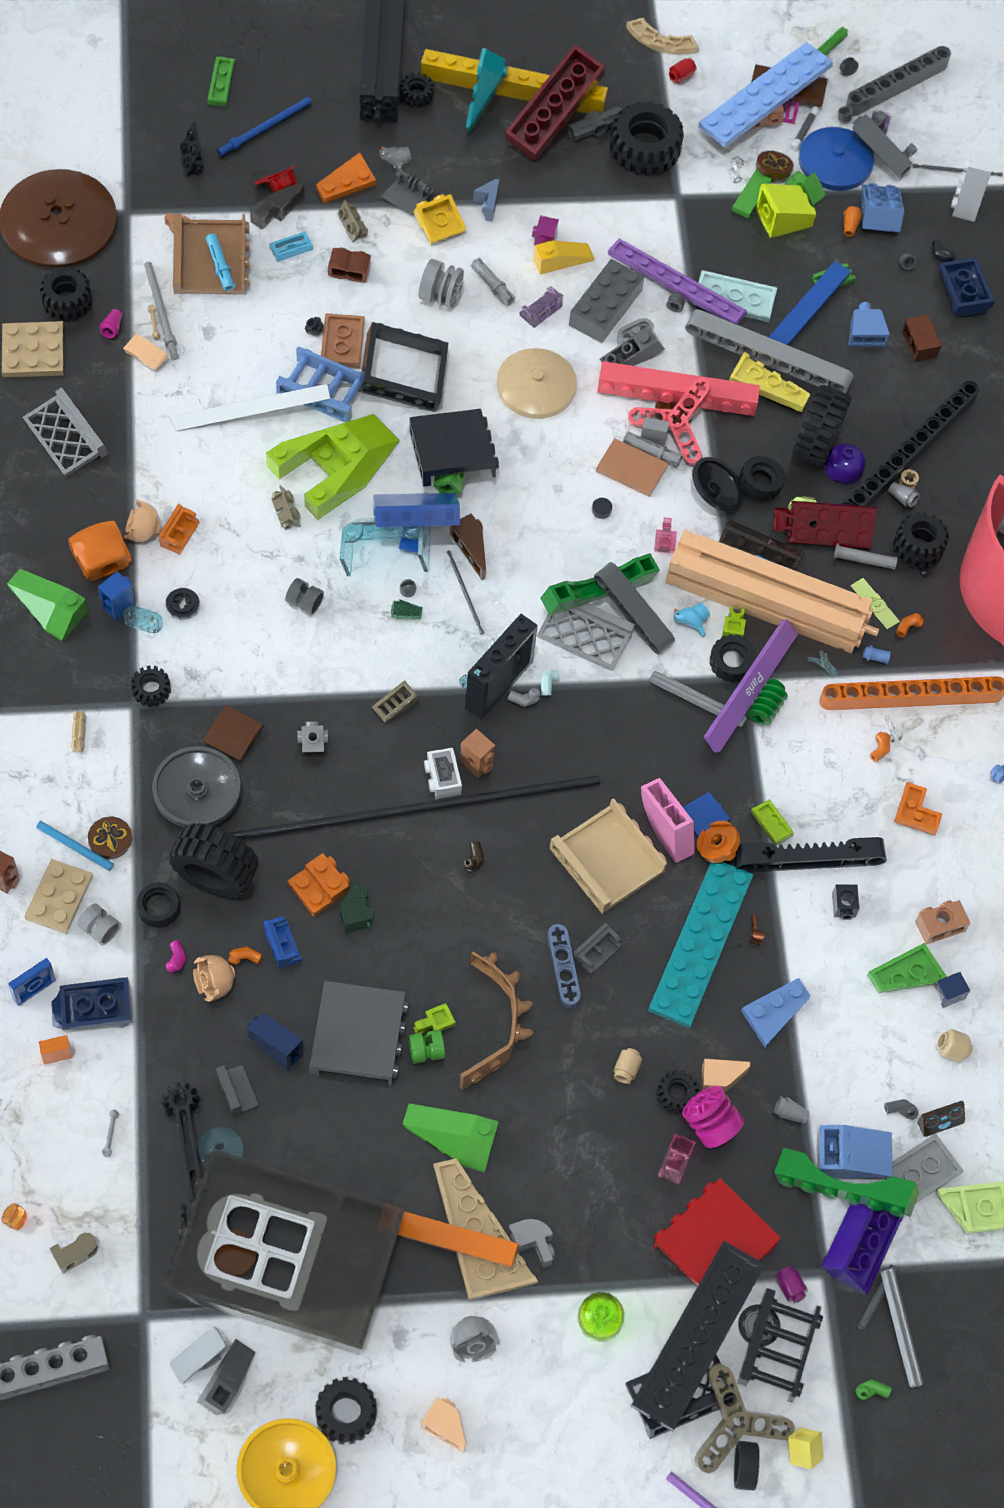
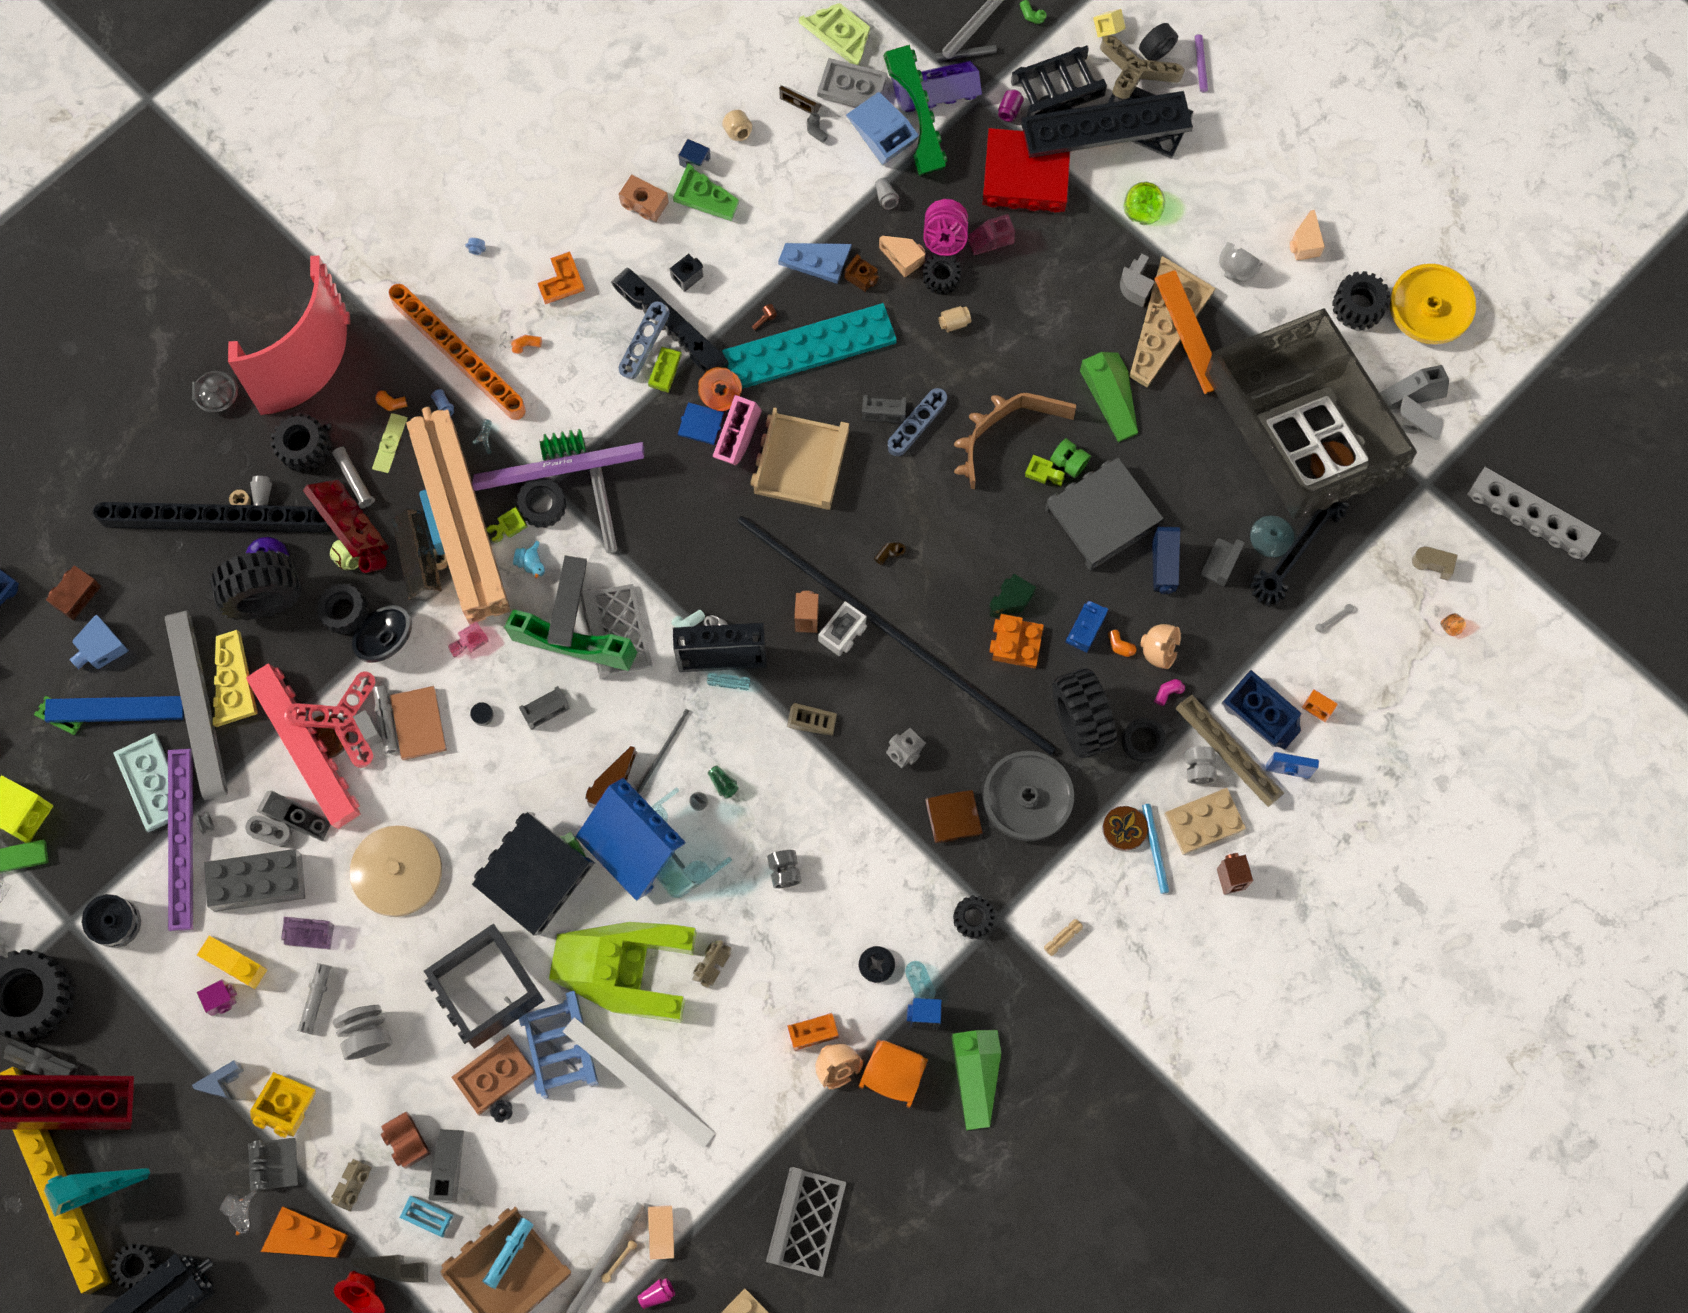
camera: 125 degrees left, 10 degrees up
(90, 955) = (1230, 750): none -> dark tan plate
(307, 270) = (446, 1166): none -> dark grey slope
(570, 545) = (544, 708): none -> dark grey hinge
(653, 209) = (125, 921): none -> black wheel
(727, 1036) = (861, 280): none -> reddish brown brick
(812, 818) = (640, 338): none -> sand blue beam

